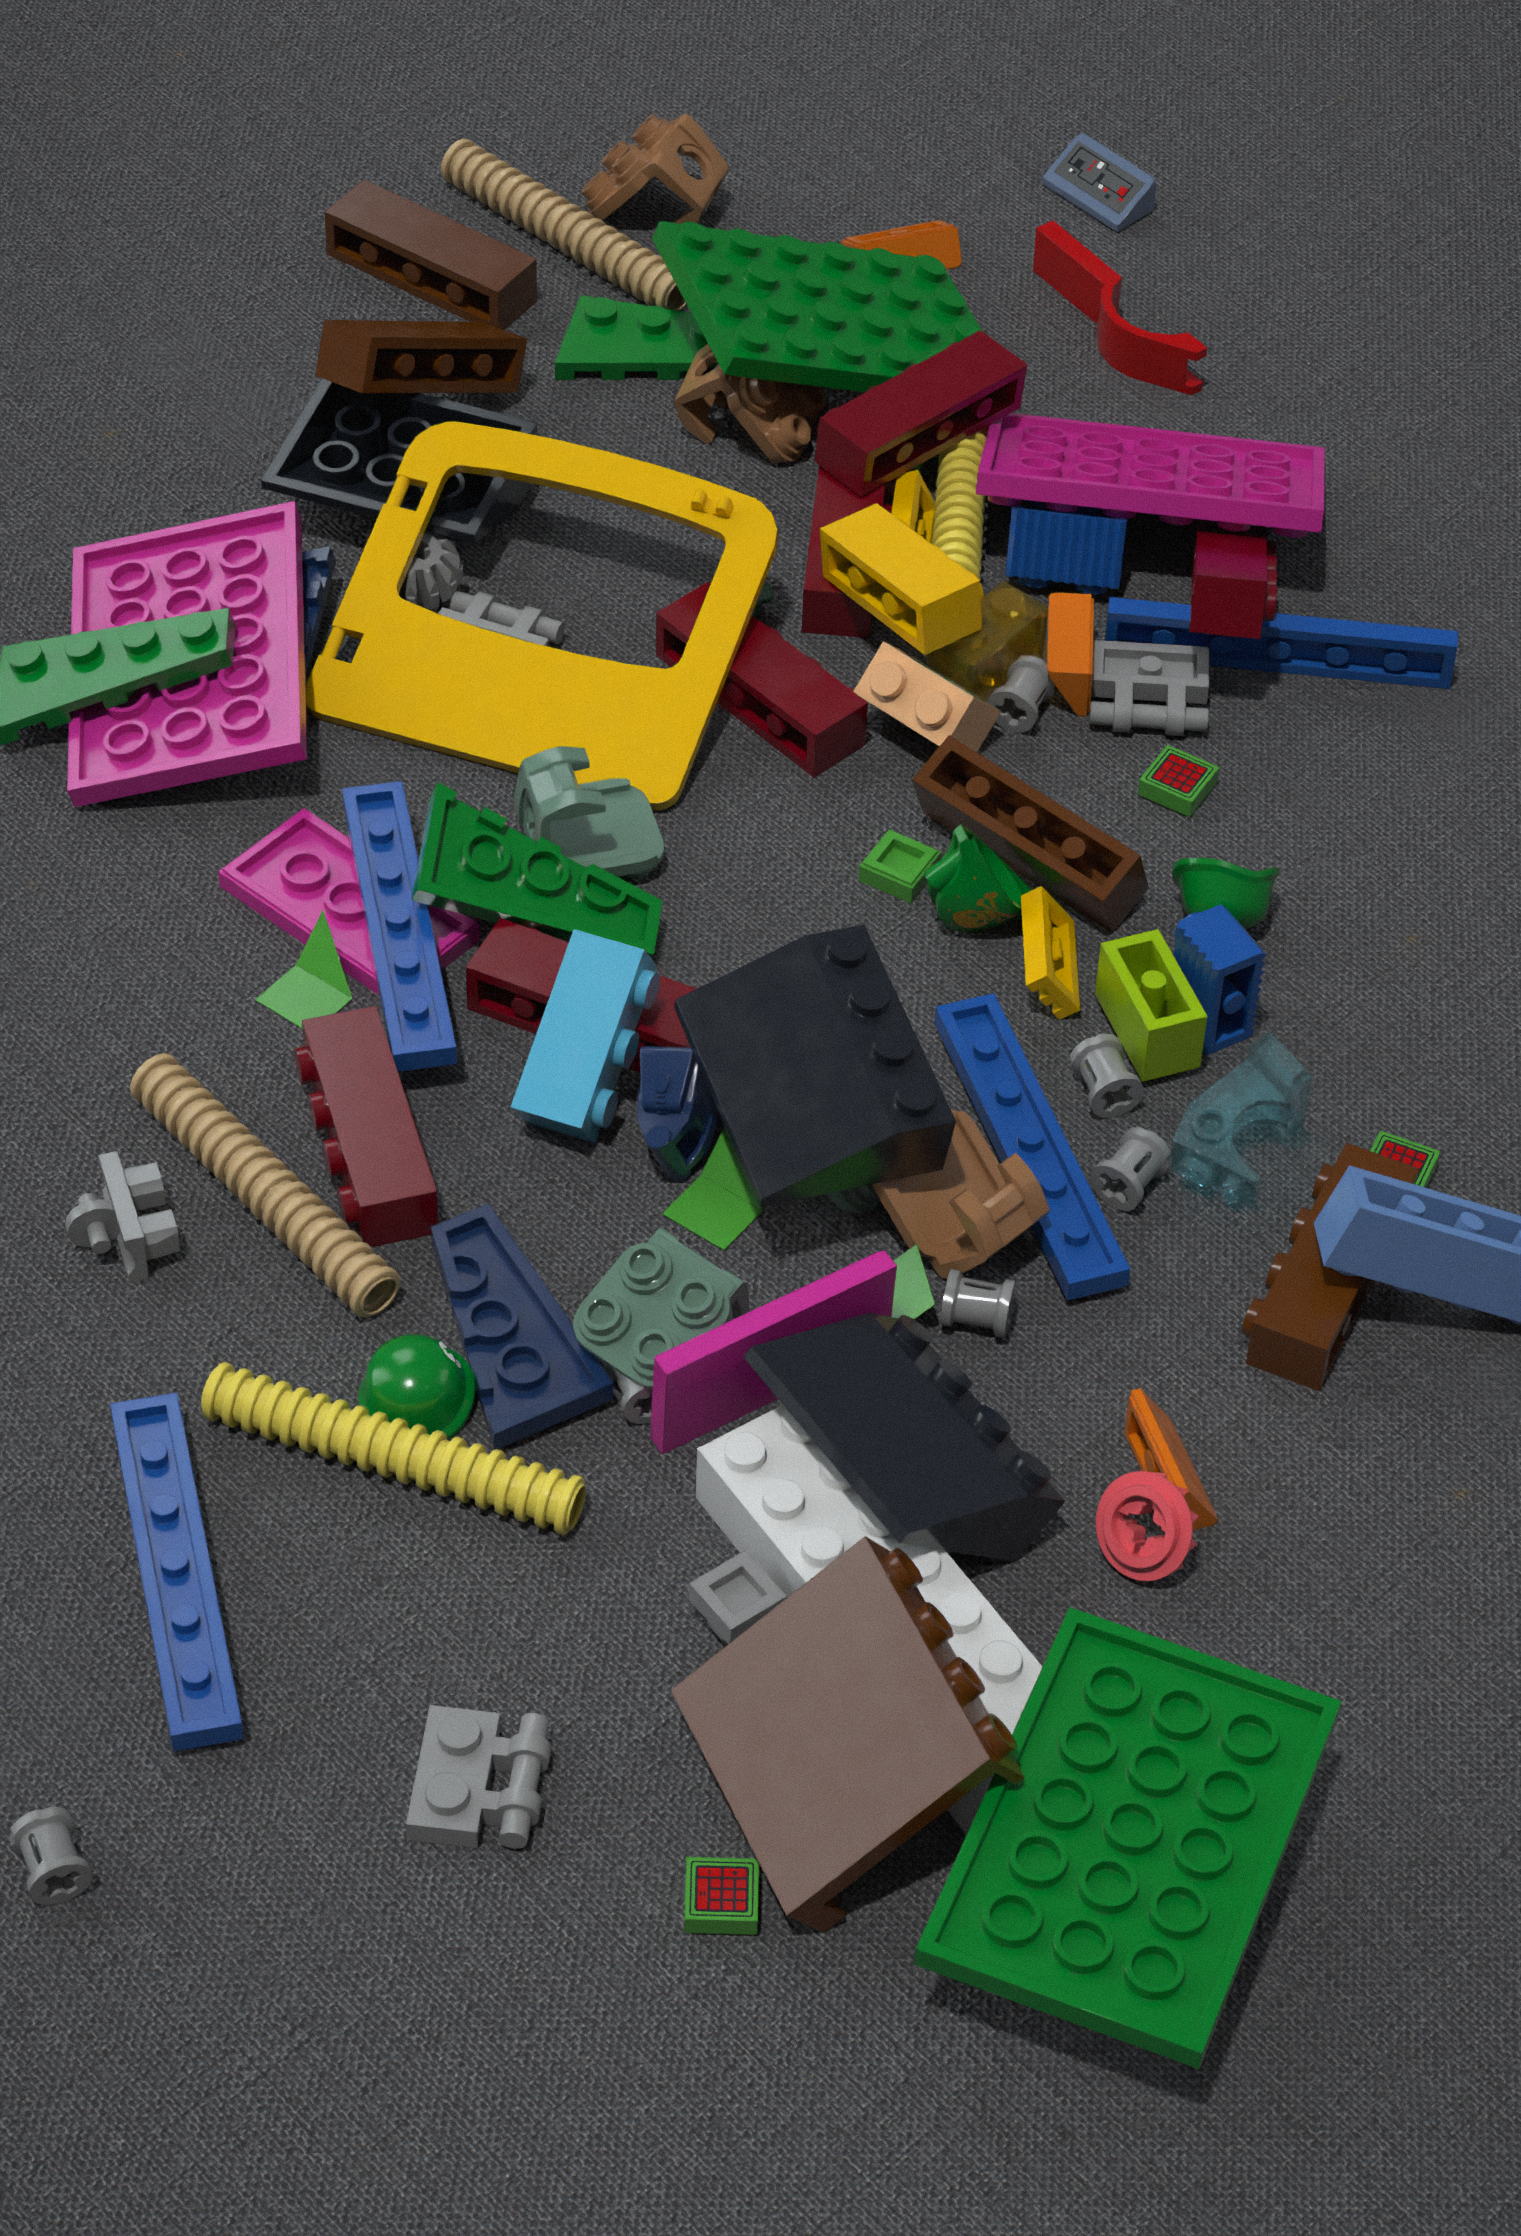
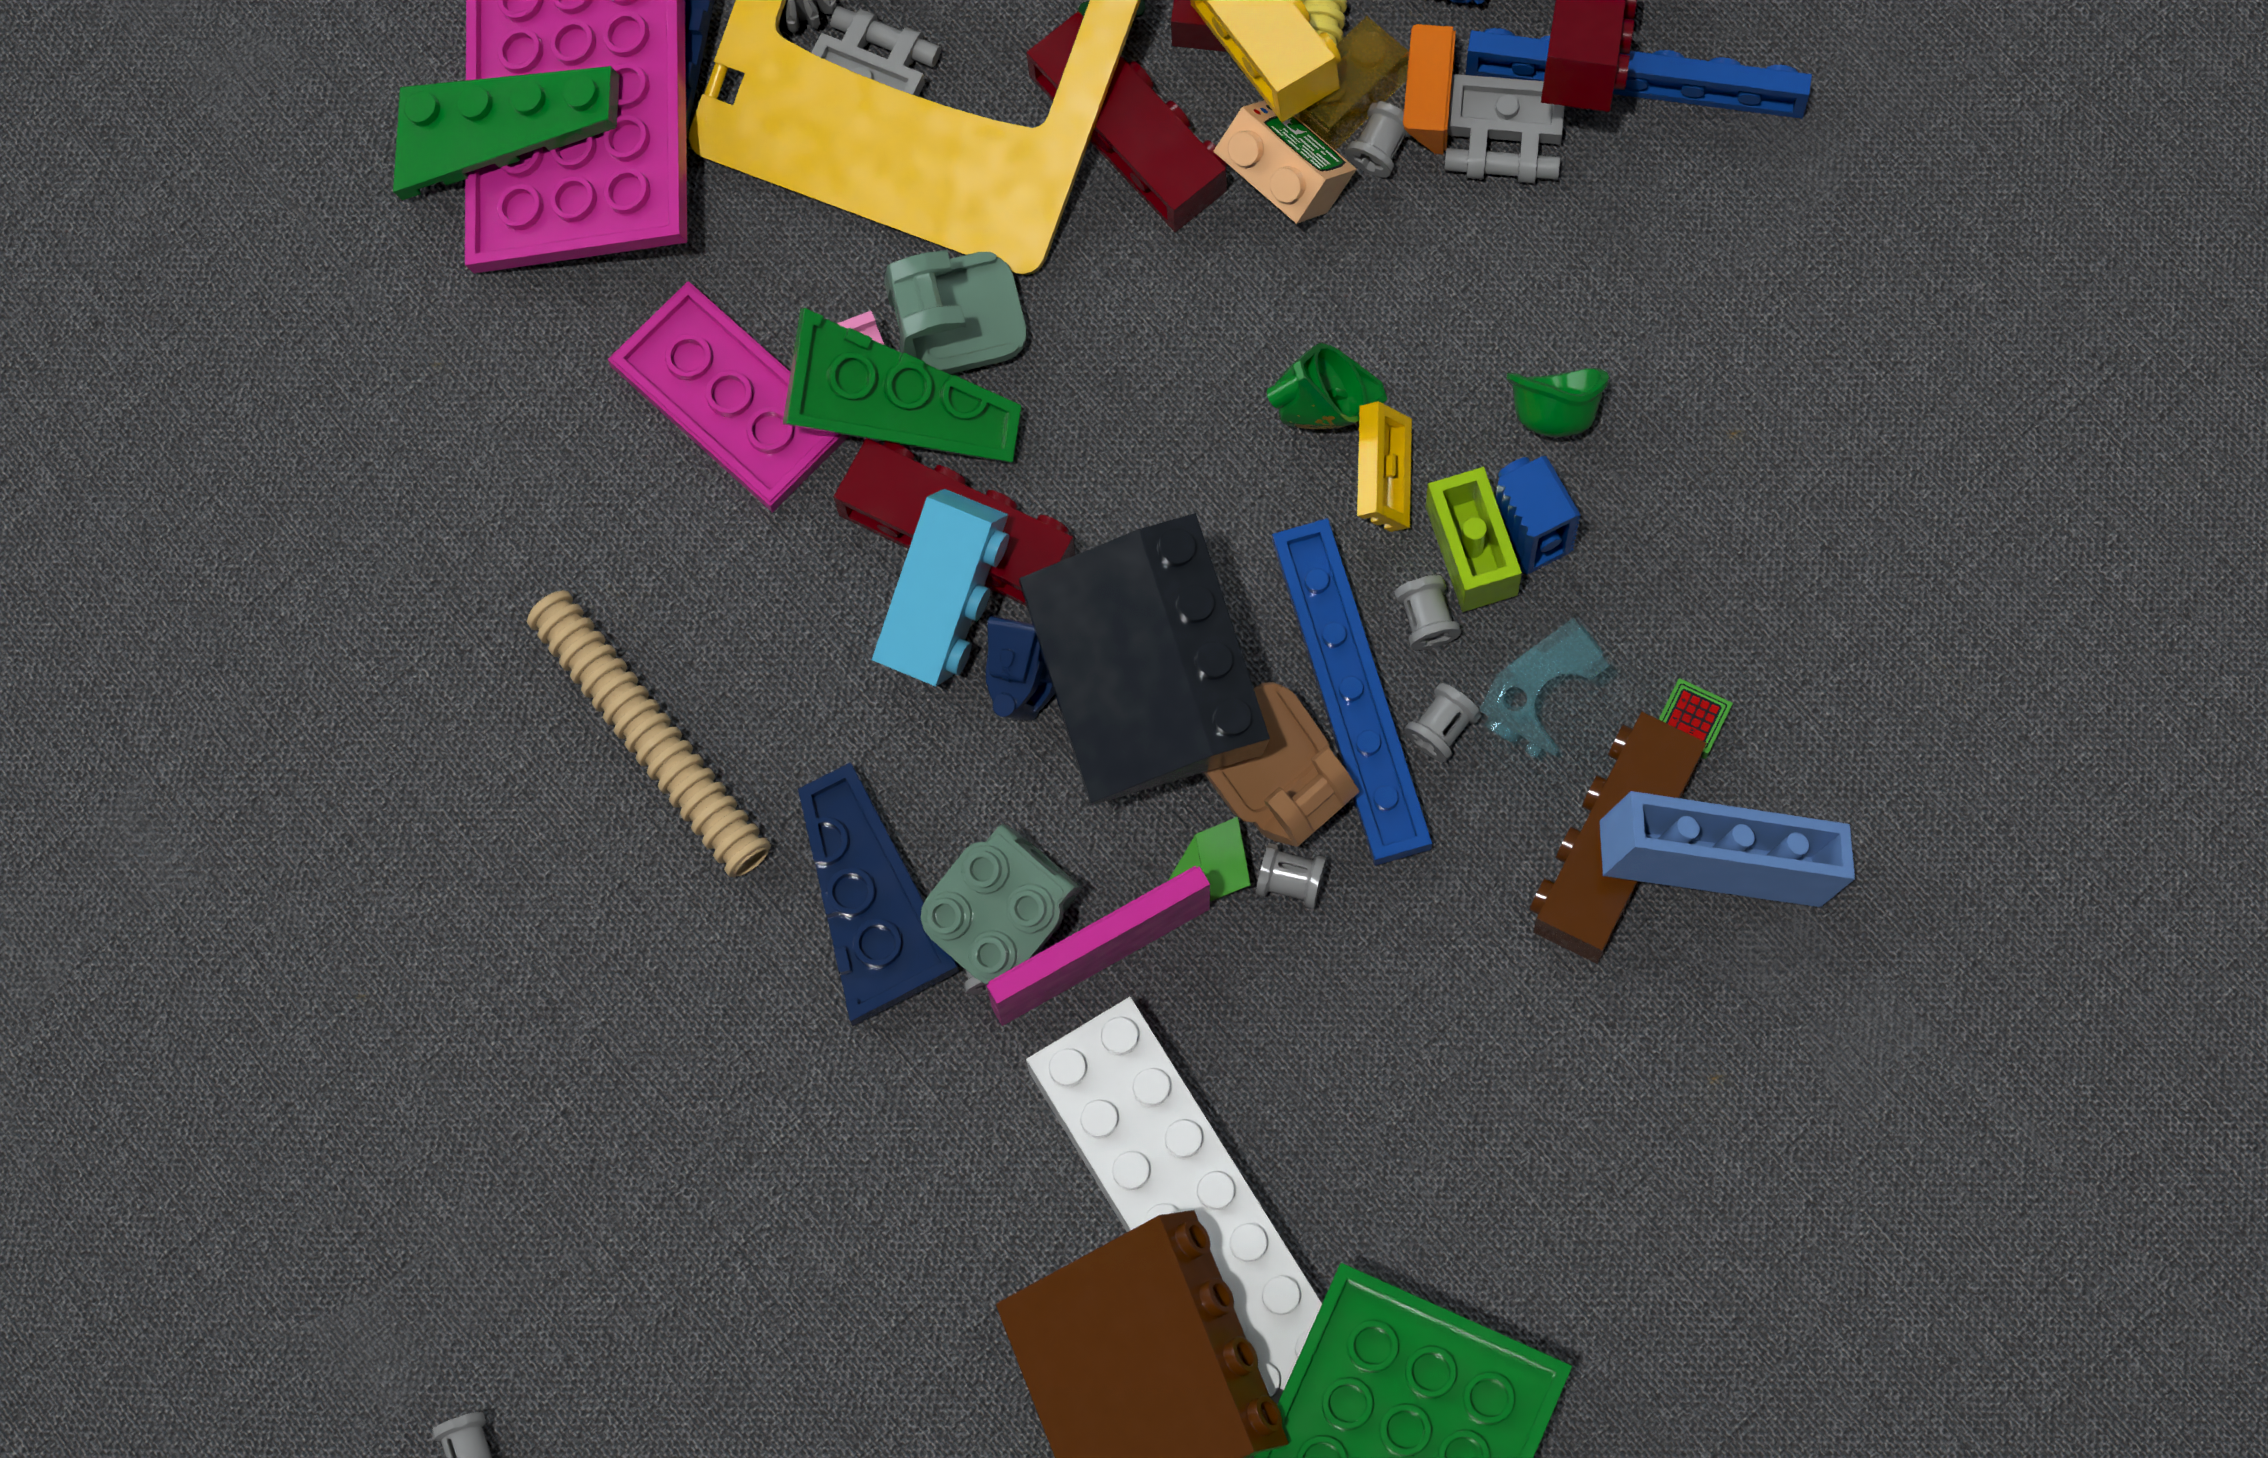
camera: 10 degrees right, 25 degrees up
(102, 1220) = (534, 794): light grey hips -> none
(176, 1573) = (570, 1156): blue plate -> none
(314, 984) = (694, 492): bright green sticker -> none
(367, 1127) = (742, 668): dark red brick -> none
(393, 1448) = (761, 1030): light yellow piece -> none
(398, 927) = (771, 450): blue plate -> none
(419, 1382) = (785, 964): green helmet -> none
(455, 1775) = (812, 1366): light grey plate -> none
(719, 1200) = (1050, 754): bright green sticker -> none
(734, 1596) = (1058, 1204): light grey tile -> none
(898, 866) = (1250, 348): bright green tile -> none
(910, 1435) = (1210, 1051): black slope -> none
(1032, 833) = (1373, 328): reddish brown brick -> none
(1124, 1539) = (1405, 1133): coral gear -> none
(1162, 1451) = (1453, 1054): orange slope -> none
(1178, 780) = (1525, 243): tile -> none

